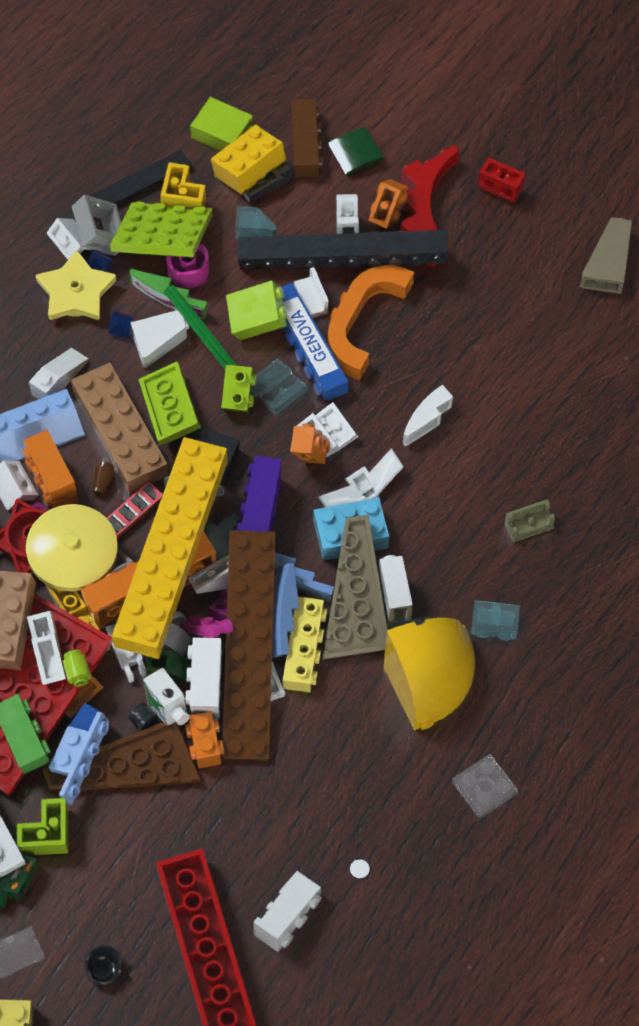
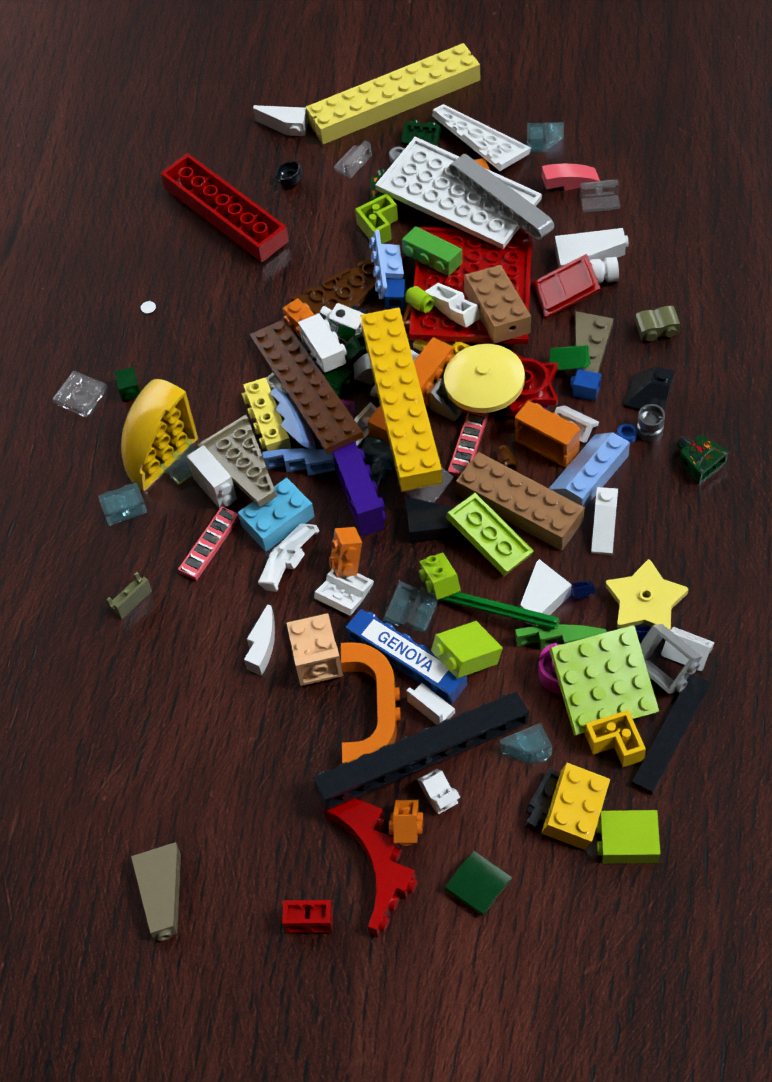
camera: 160 degrees right, 5 degrees down
(206, 626) = (345, 379): dark pink plate -> none
(287, 911) = (182, 249): white wedge -> none
(305, 138) = (538, 869): reddish brown brick -> none
(385, 379) = (314, 649): none -> light nougat bracket
(428, 762) = (127, 383): none -> dark green brick
(431, 538) = (208, 543): none -> tile

